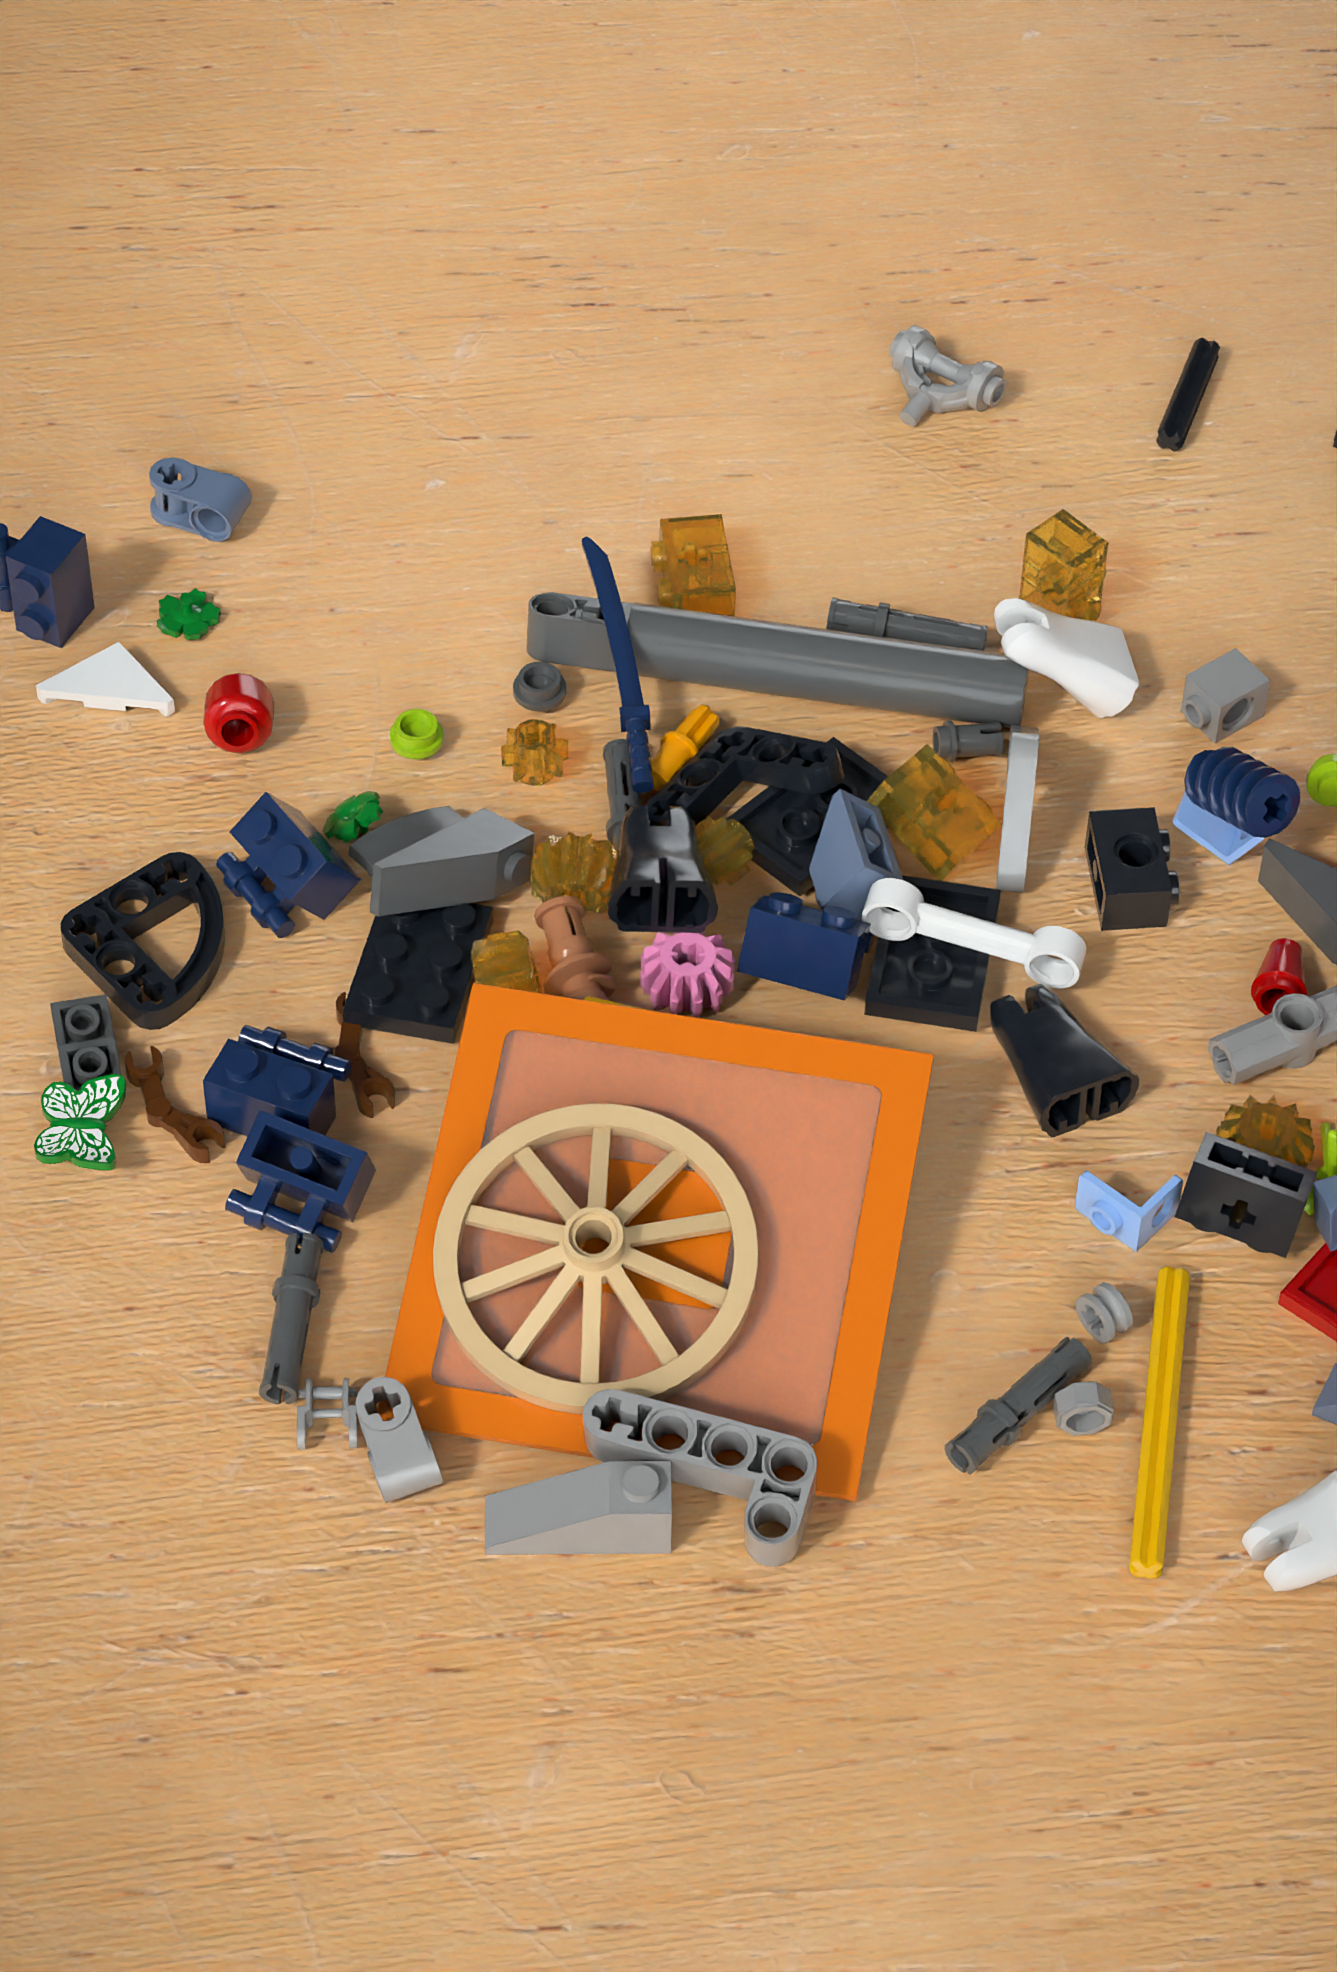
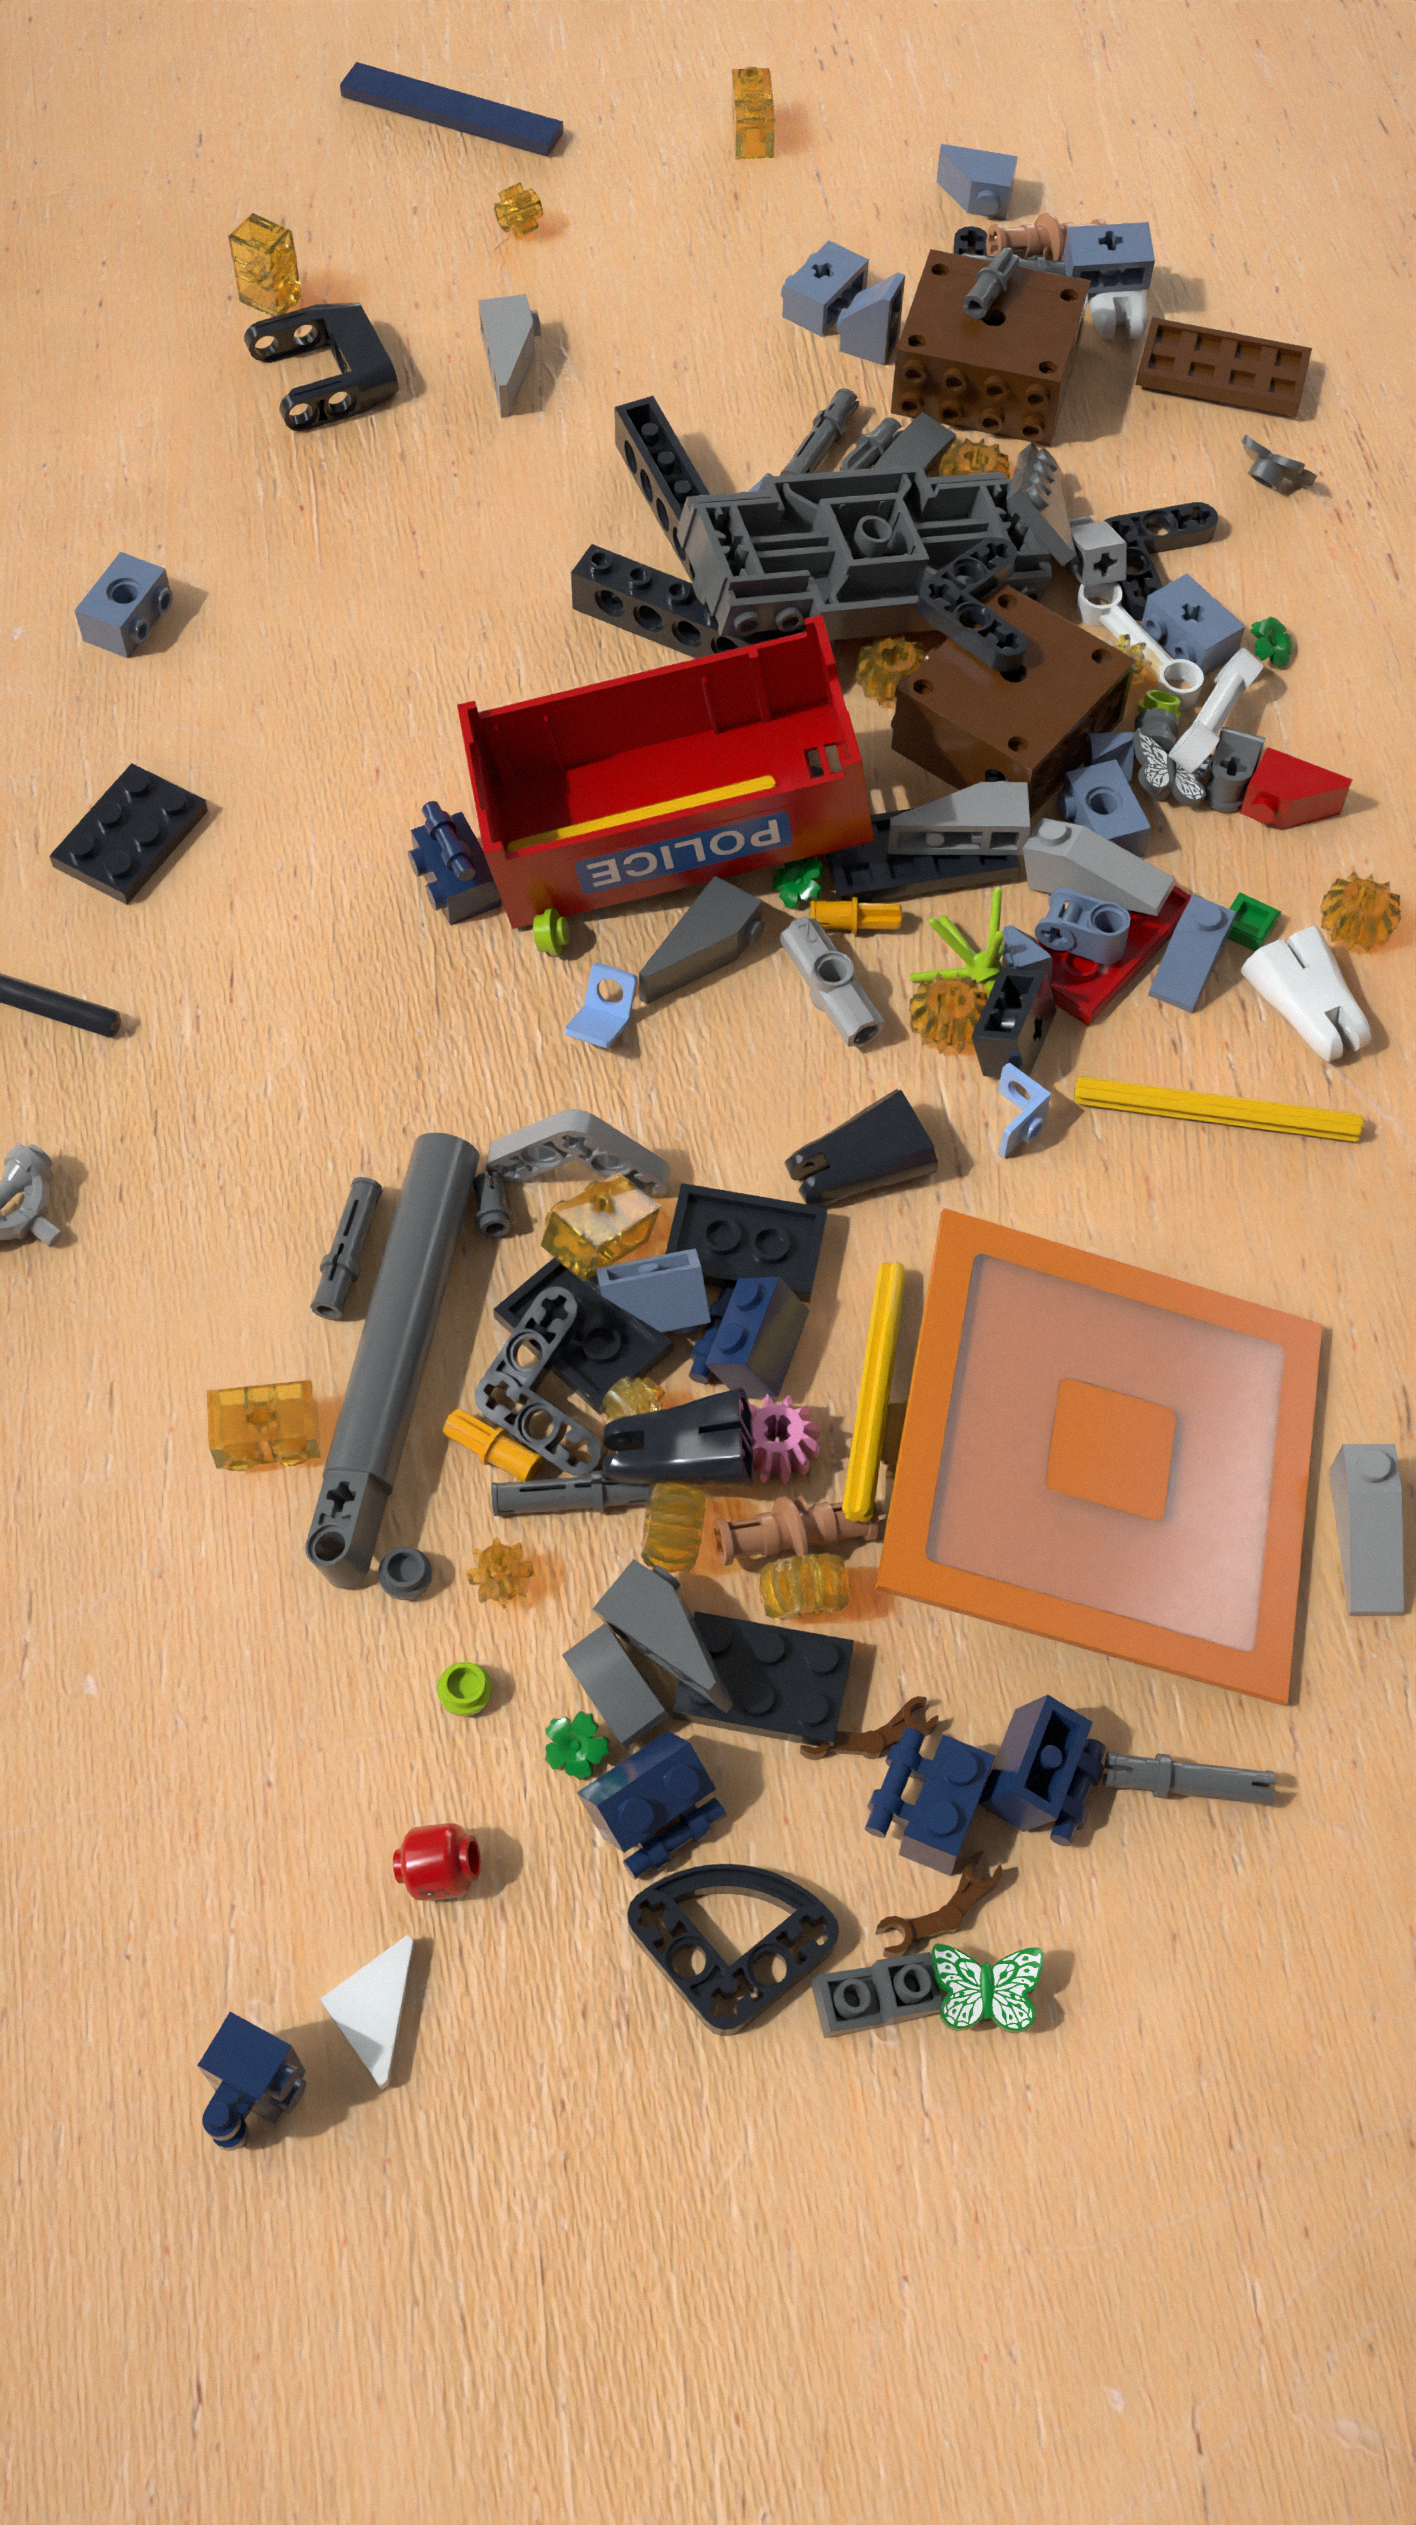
camera: 90 degrees left, 10 degrees up
(189, 616) = (271, 1933): green plant -> none
(200, 502) = (116, 1915): sand blue piece -> none
(306, 1413) = (1285, 1761): light grey piece -> none
(397, 1447) = (1322, 1679): light grey piece -> none
(600, 1268) = (1141, 1503): tan wheel -> none
(633, 713) = (413, 1476): dark blue sword -> none
(695, 1463) = (1336, 1389): light grey beam -> none
(974, 933) = (731, 1241): white piece -> none
(1001, 1419) = (1236, 1215): dark grey pin -> none
(1064, 567) = (314, 1103): clear yellow brick -> none
(1076, 653) = (417, 1099): white piece -> none
(1083, 1408) = (1221, 1156): light grey tile -> none
(1104, 1312) = (1125, 1136): light grey bush -> none
(1130, 868) = (673, 1101): black brick -> none
(1225, 695) = (451, 1001): light grey brick -> none
(1242, 791) = (606, 977): dark blue piece -> none
(1279, 974) = (770, 988): red cone -> none

